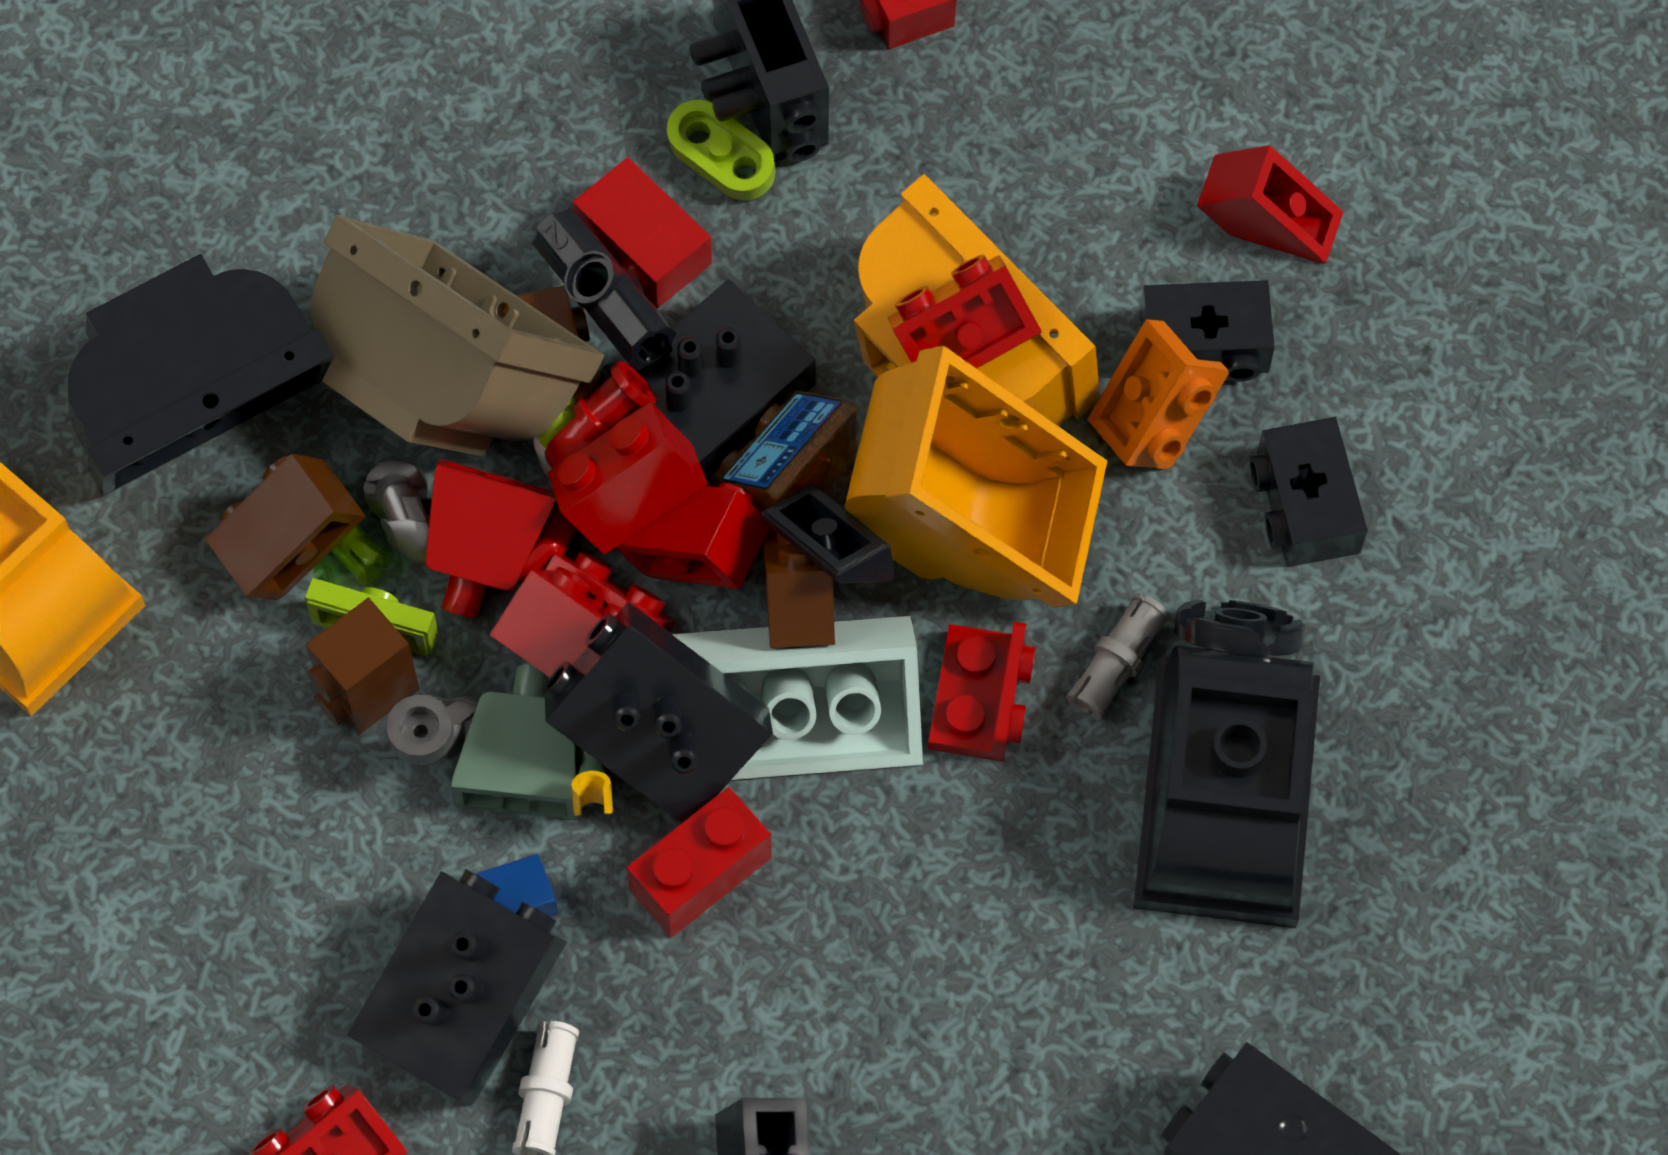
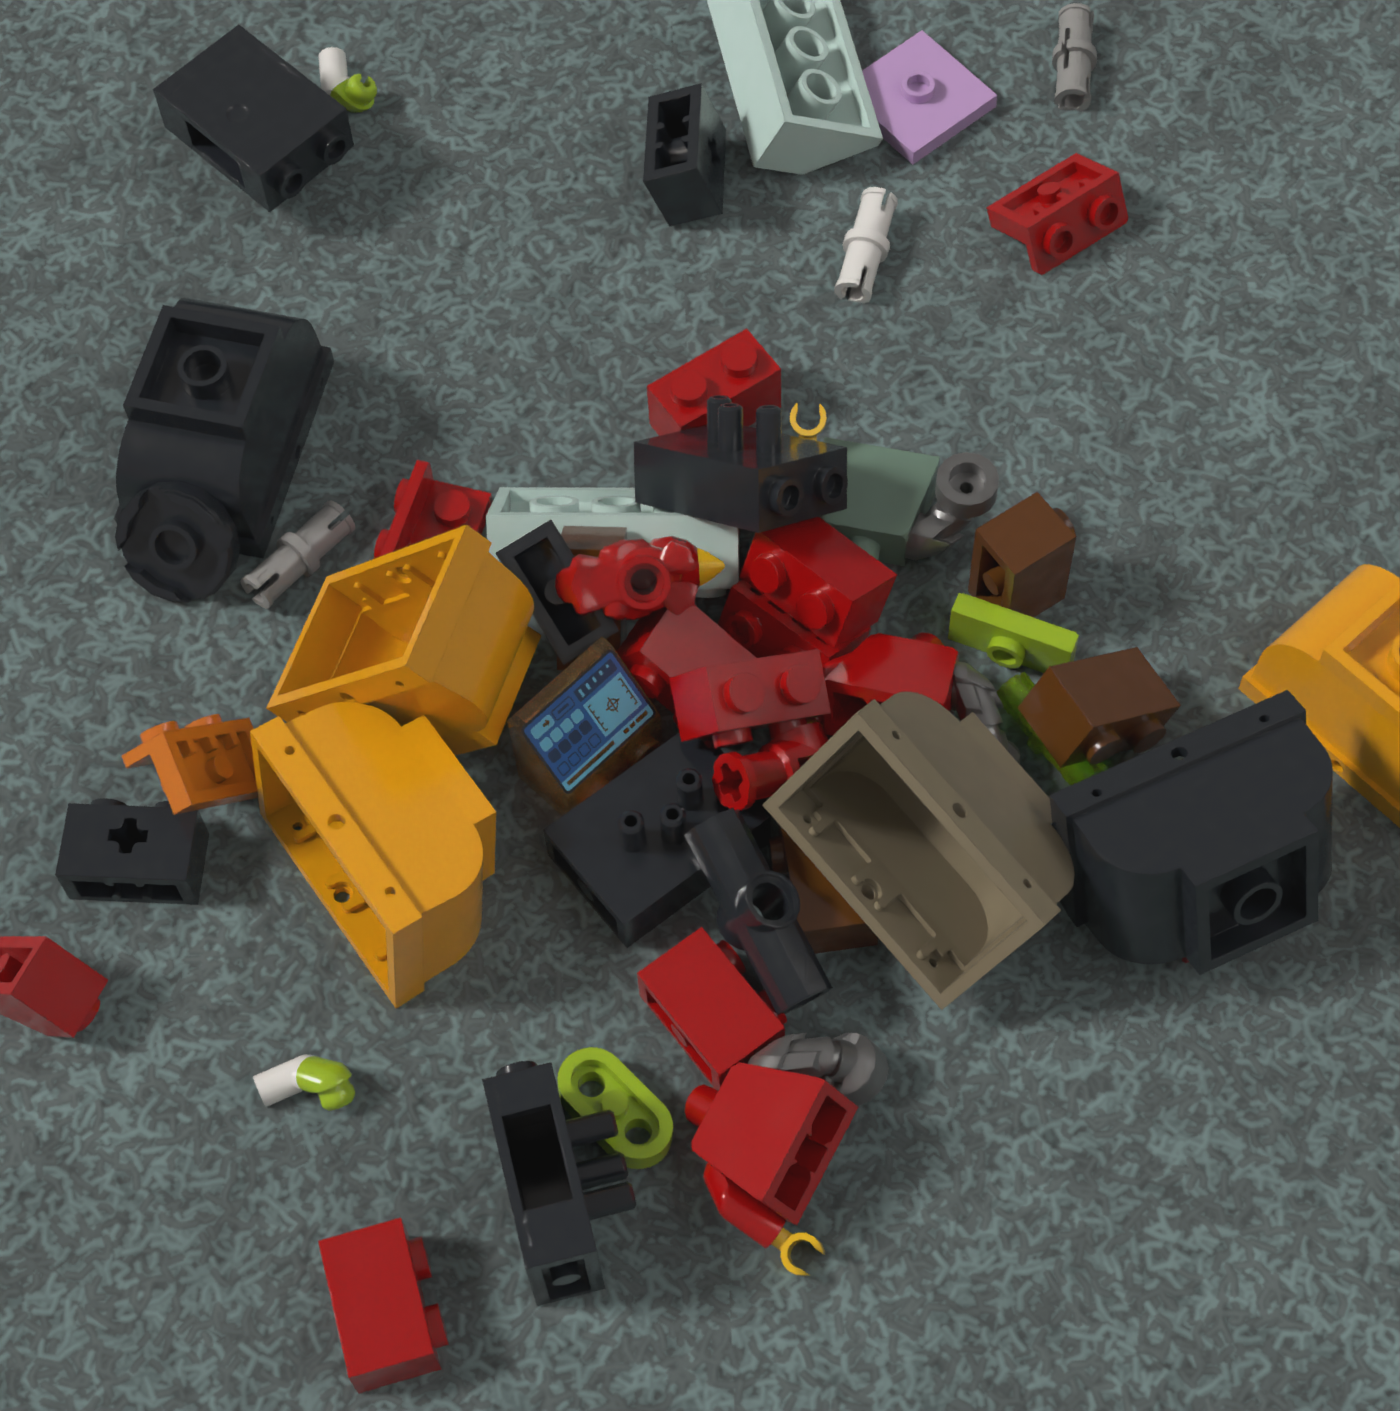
camera: 170 degrees left, 5 degrees down
(458, 985) = (938, 304): black piece -> none
(525, 882) = (882, 400): blue slope -> none
(572, 123) = (778, 1129): none -> red torso
(736, 545) = (637, 578): none -> red animal
(972, 315) = (383, 765): red bracket -> none
(997, 159) = (307, 1074): none -> lime arm
(1315, 459) = (75, 682): black brick -> none

